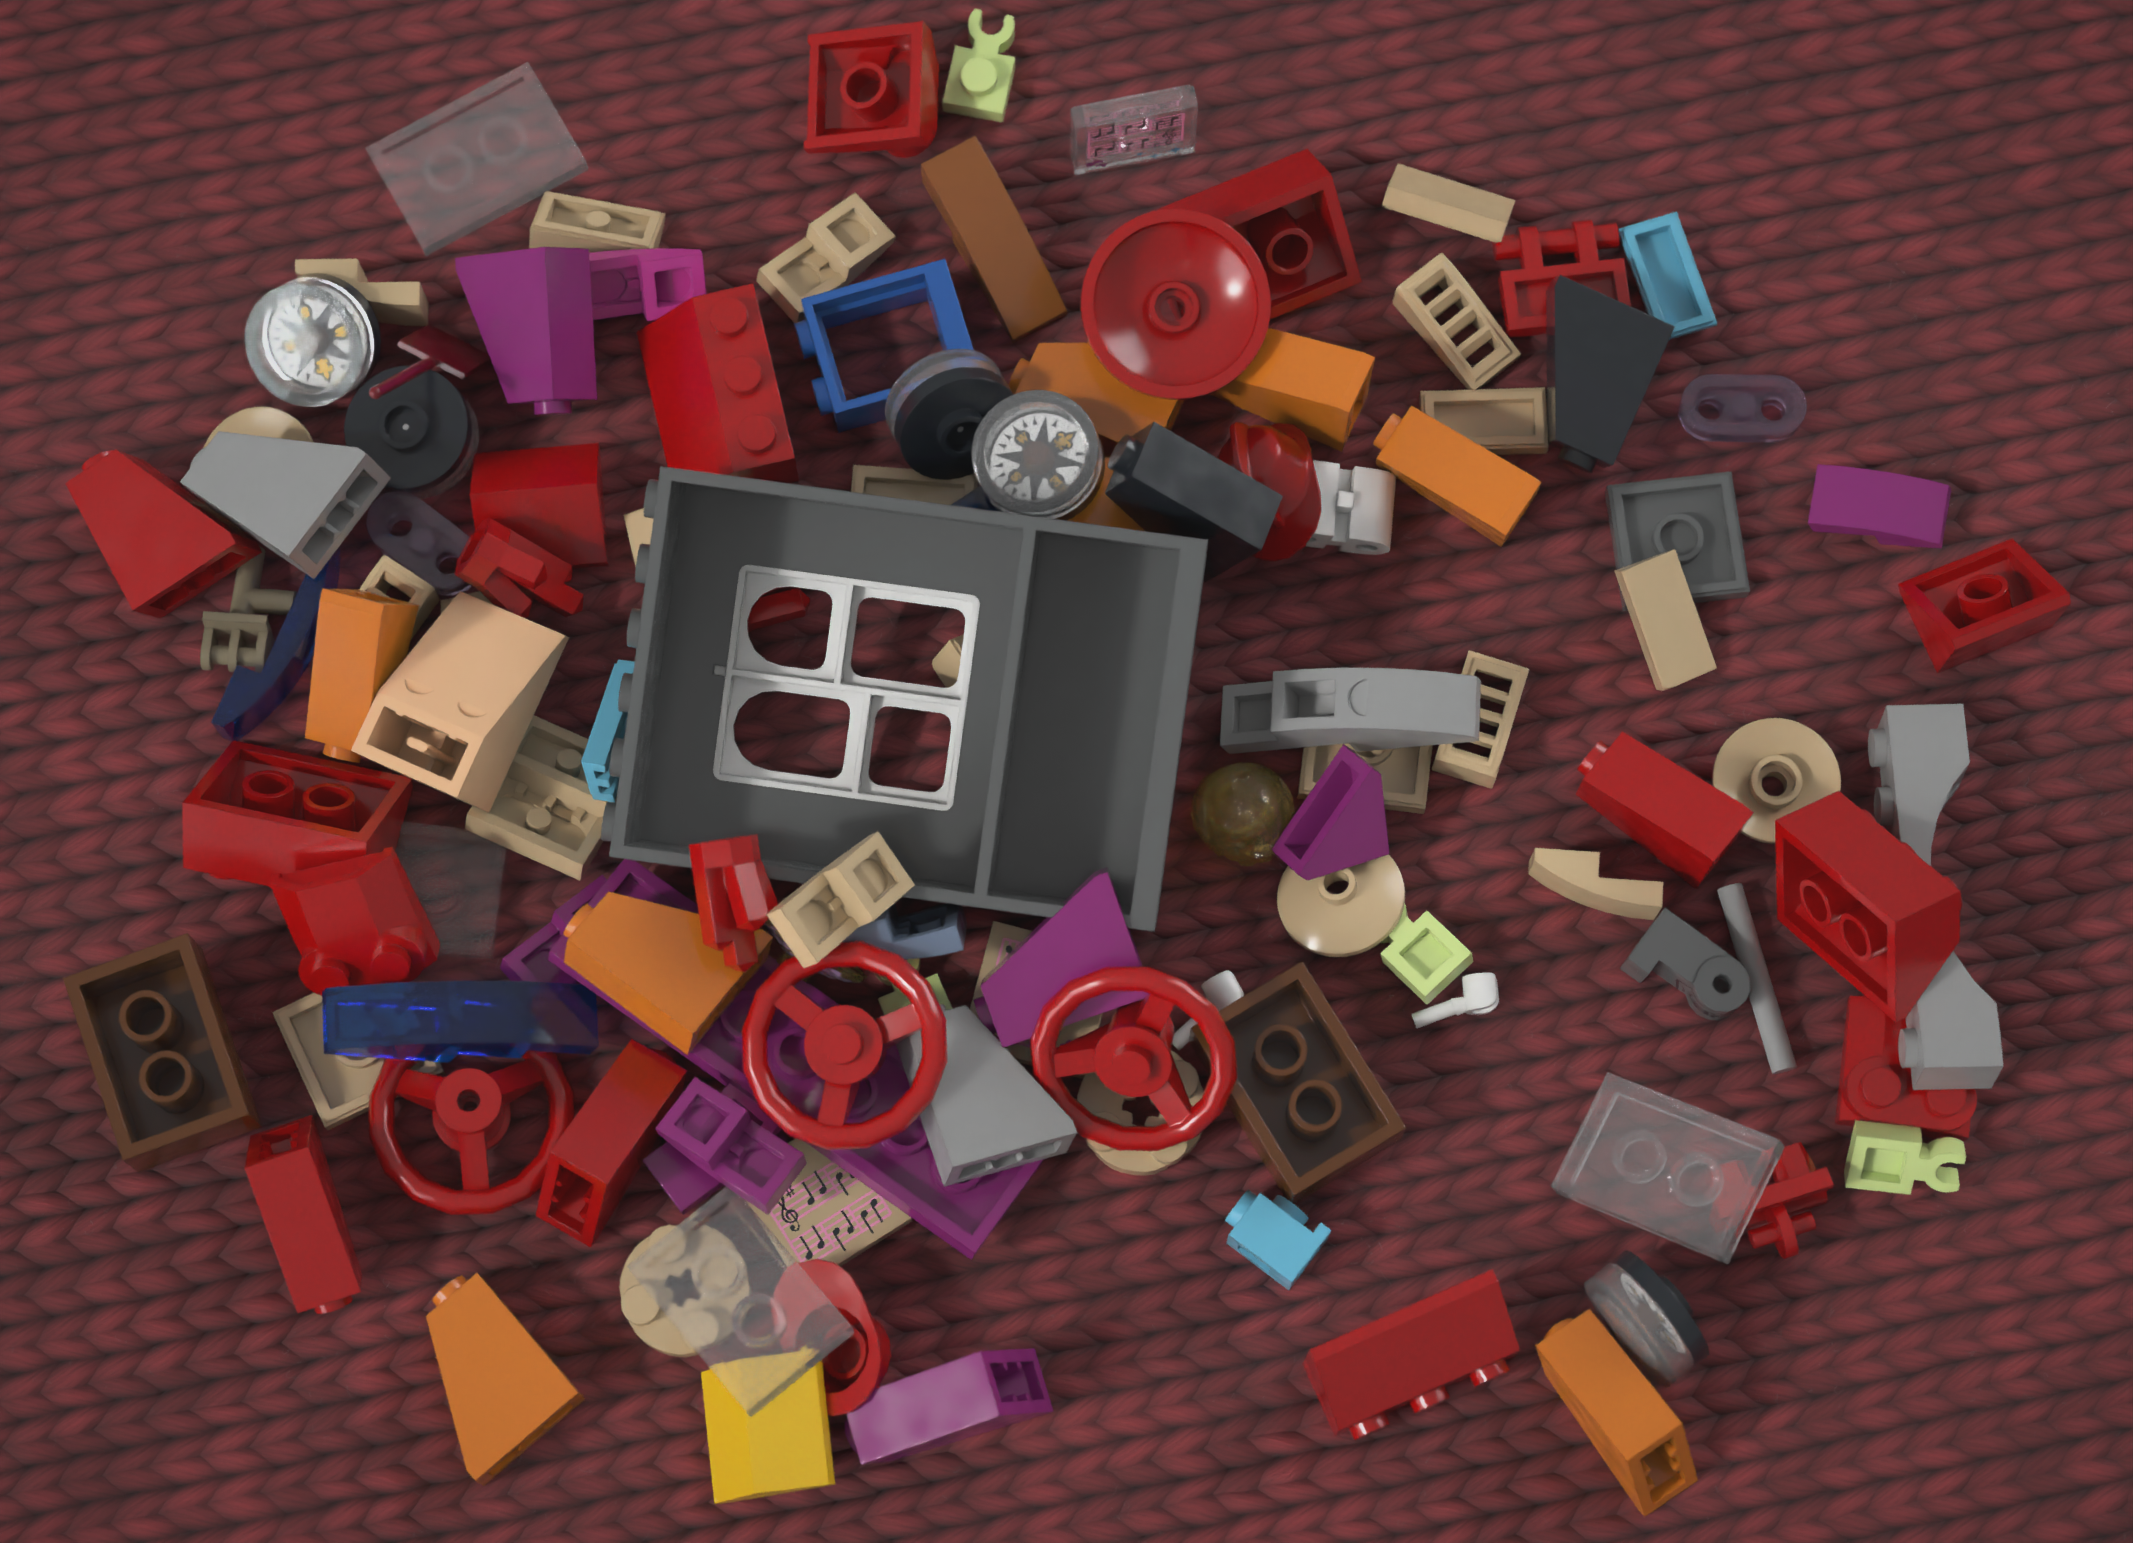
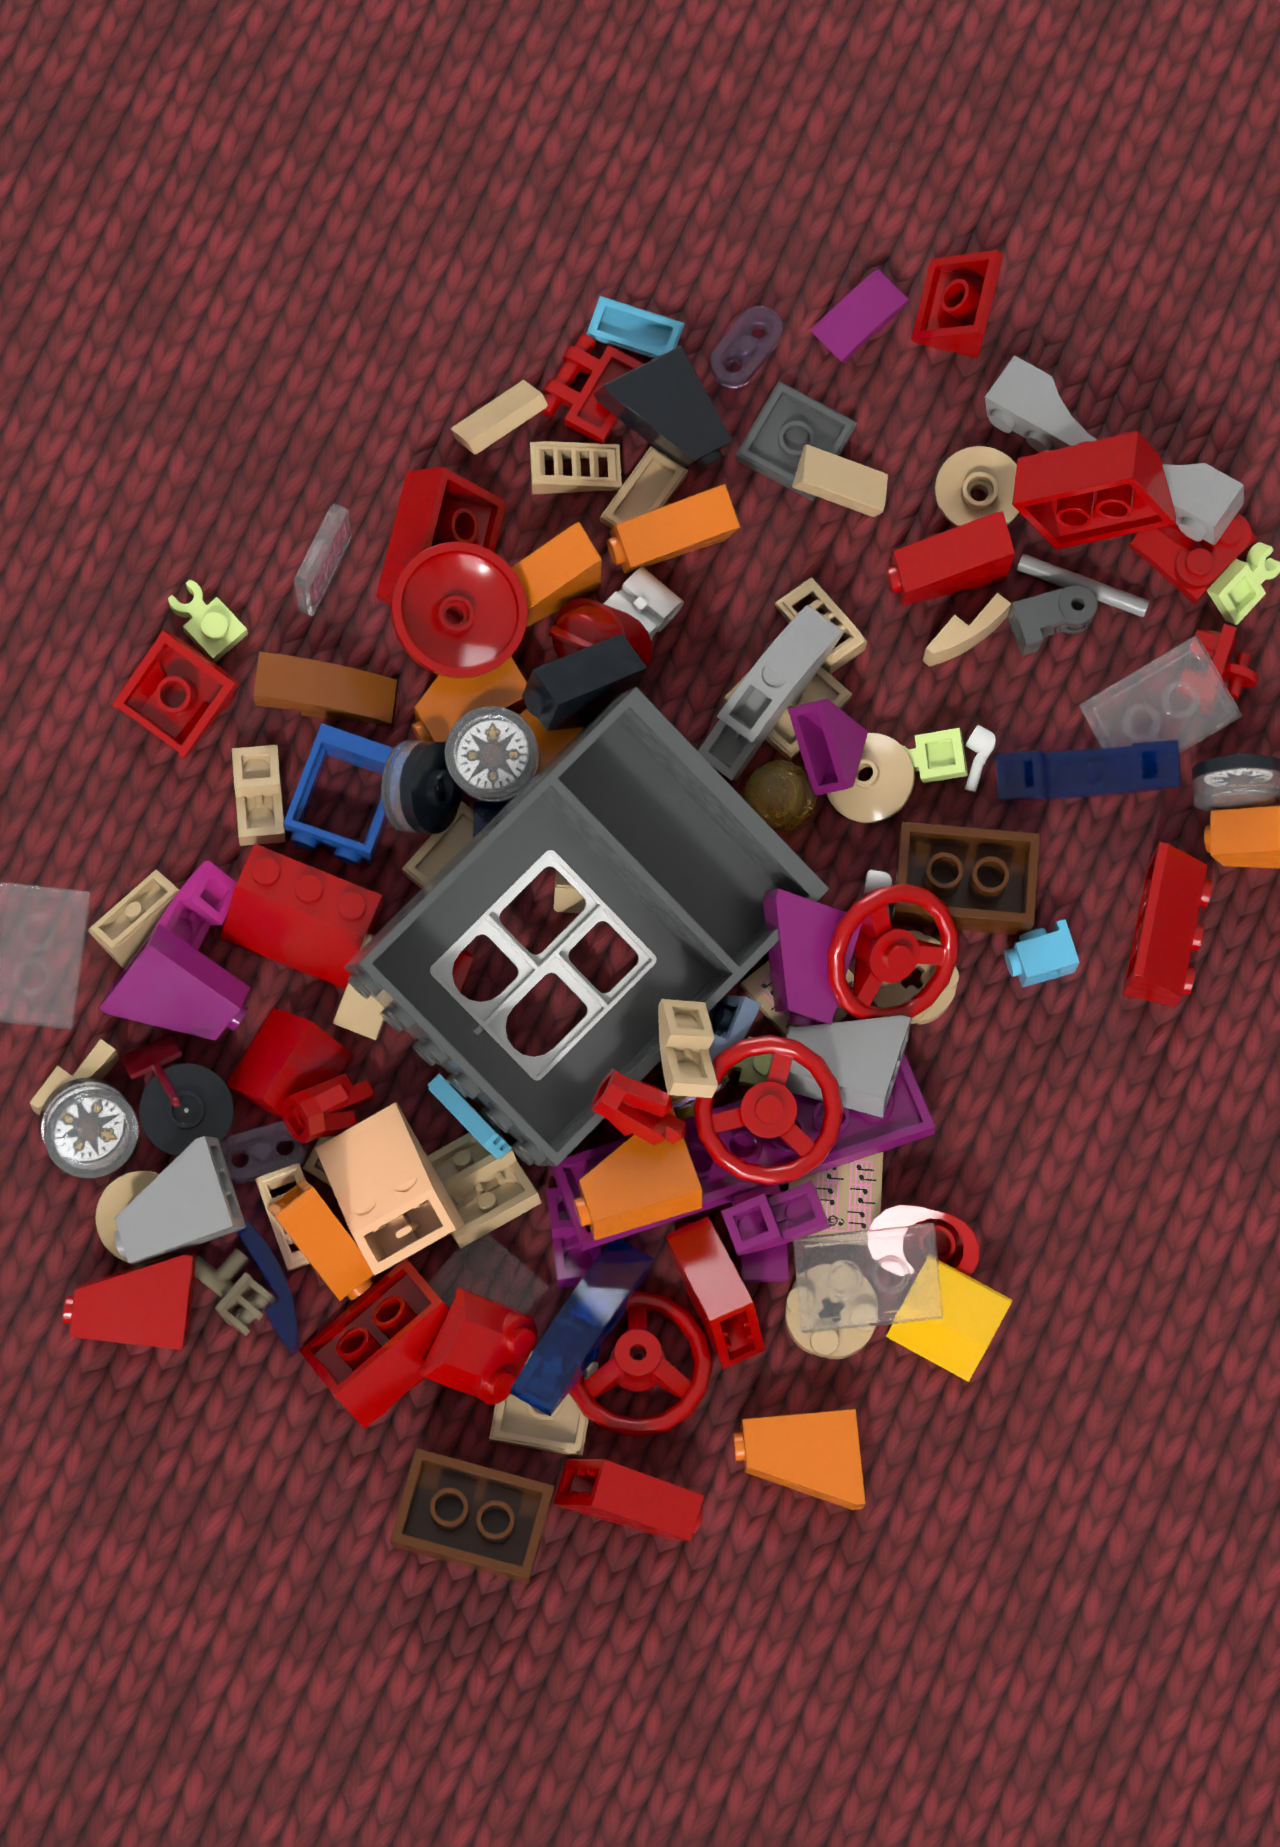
camera: 60 degrees left, 0 degrees up
(948, 1404) = (1010, 1207): magenta slope -> none
(1532, 1135) = (1089, 772): none -> clear blue slope

